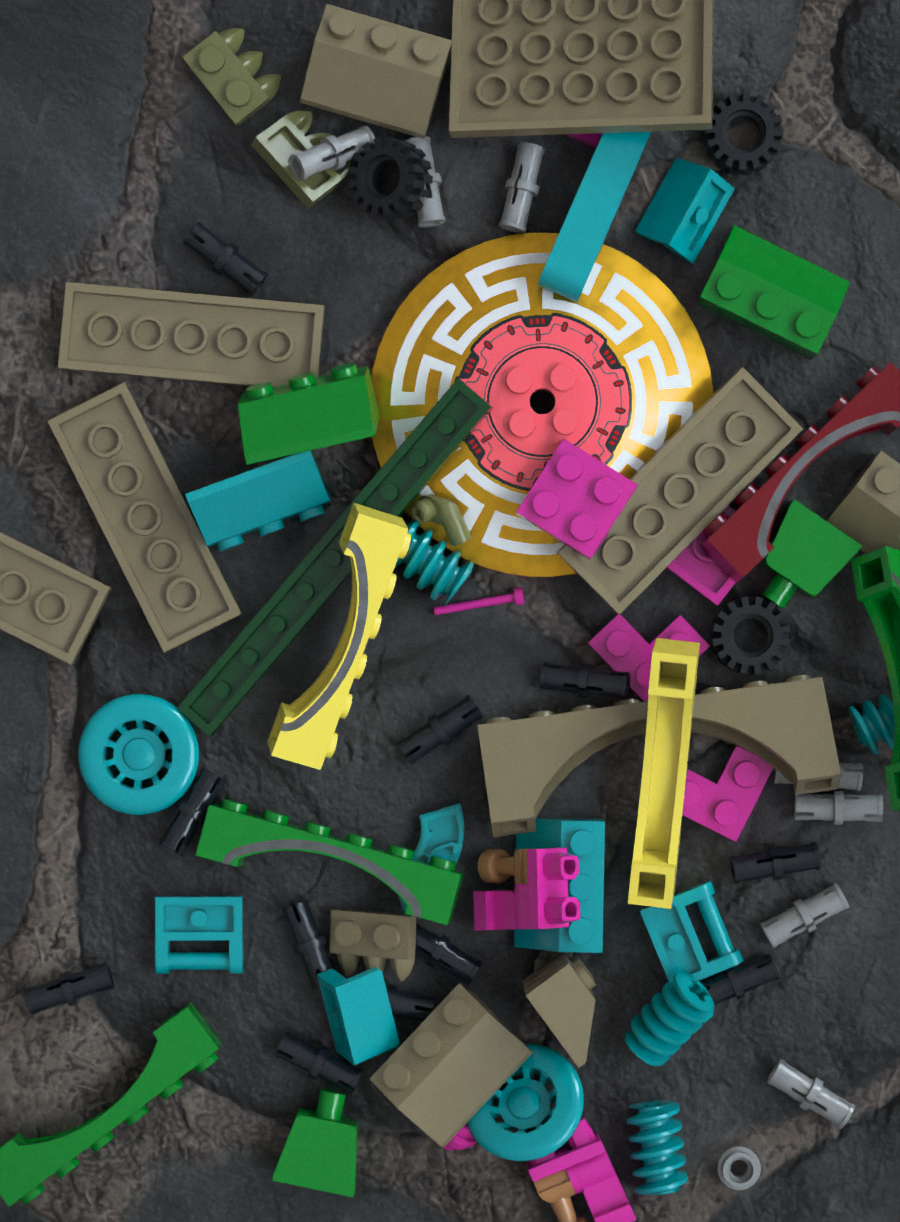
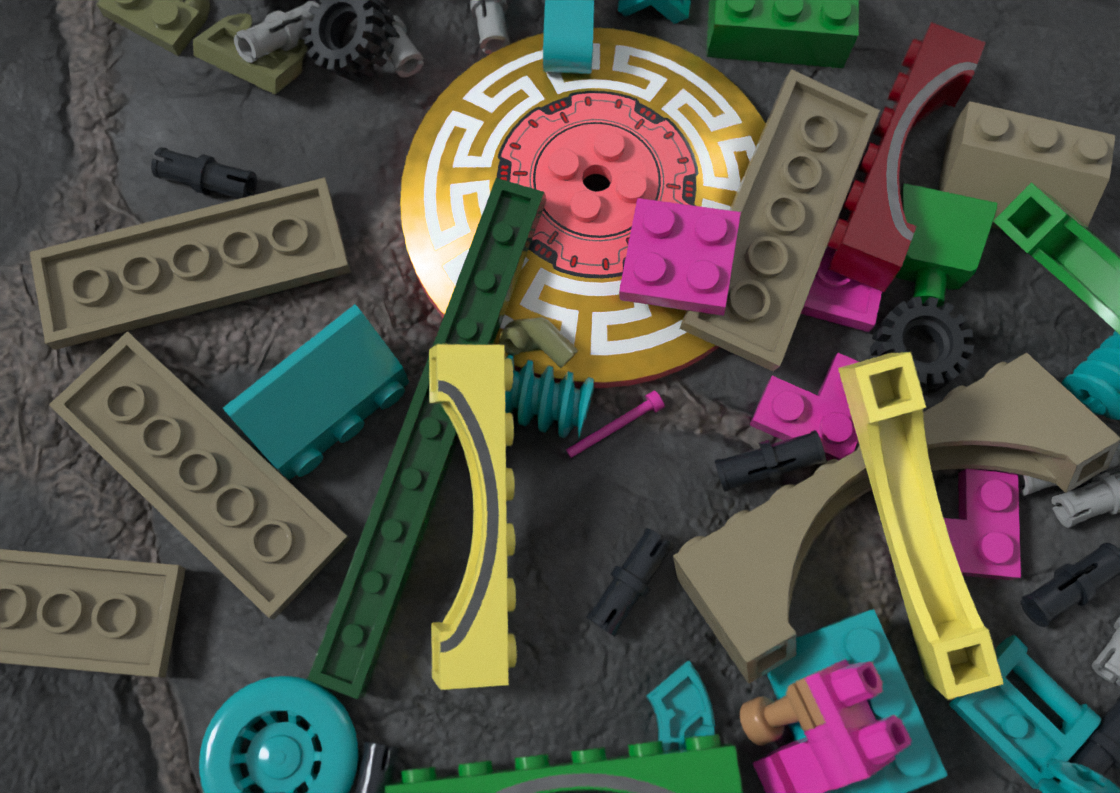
camera: 25 degrees left, 15 degrees down
(308, 413) = (341, 275): green slope -> none

